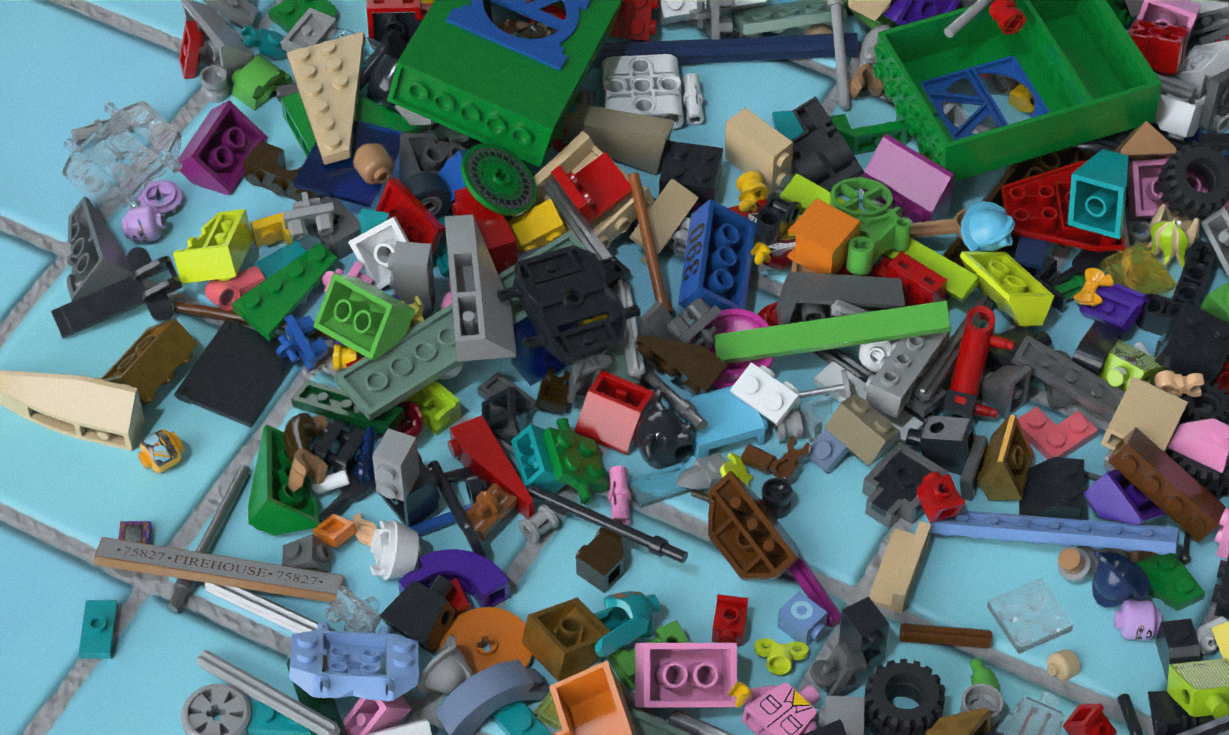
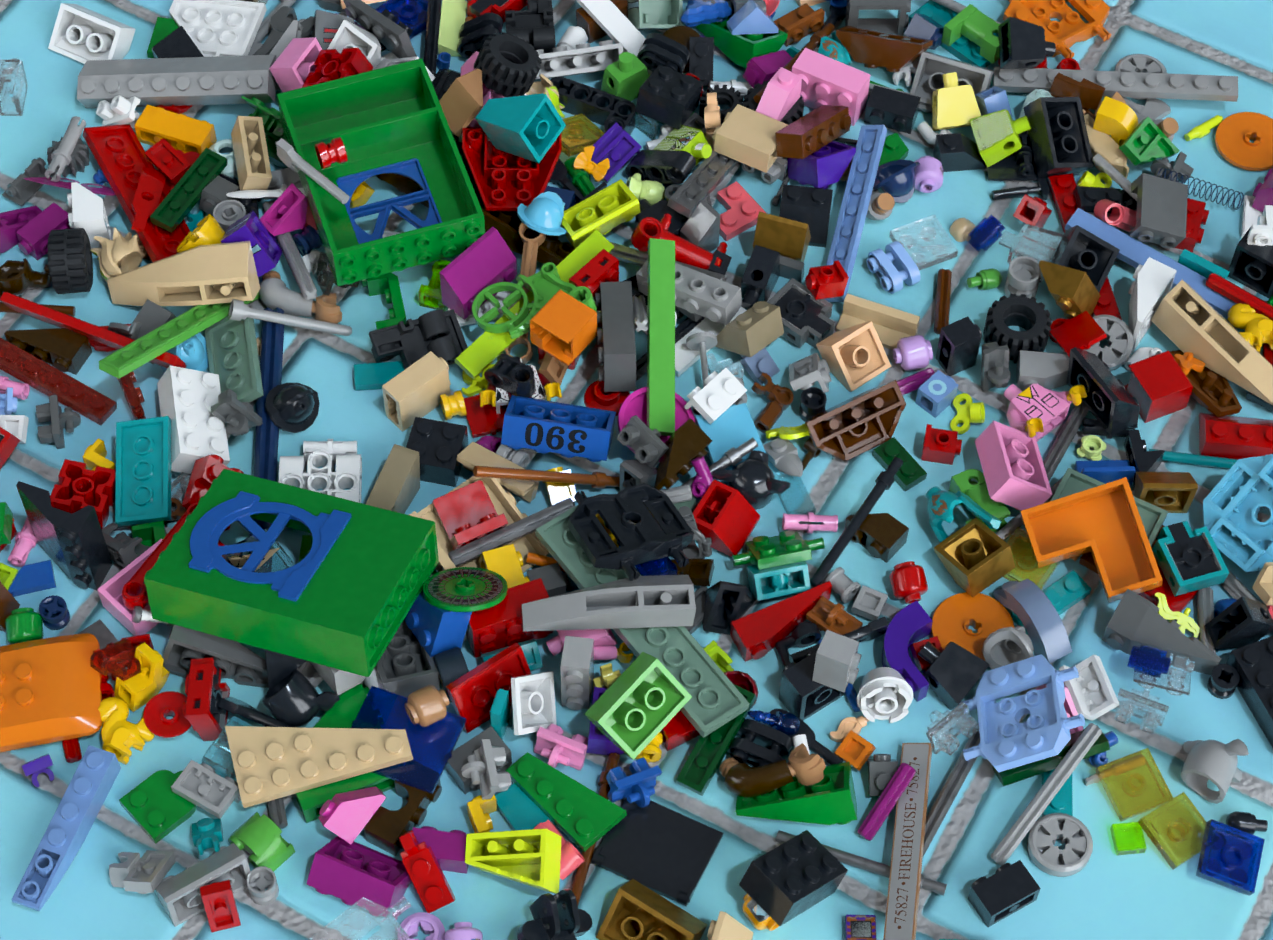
camera: 90 degrees left, 5 degrees up
(161, 657) = (1003, 892): none -> black brick
(181, 462) = (793, 877): none -> black brick
(214, 186) = (425, 873): none -> red hinge
(245, 193) = (447, 847): none -> magenta brick
(270, 553) = (886, 801): none -> magenta axle
(276, 128) = (350, 812): none -> slope
(516, 549) = (869, 603): none -> light grey plate
(541, 583) = (908, 582): none -> red head
(643, 281) = (560, 491): none -> bracket
(662, 378) = (703, 477): none -> magenta arm
(705, 585) = (910, 472): none -> dark green plate
(738, 63) = (292, 406): none -> black helmet
(812, 491) = (809, 370): none -> light grey bracket
(847, 537) = (854, 355): none -> light nougat slope
(855, 587) = (913, 352): none -> lavender head
(985, 580) = (893, 267): none -> light blue brick
(1049, 676) = (986, 233): none -> clear blue brick
(1064, 334) = (646, 189): none -> yellowish green animal

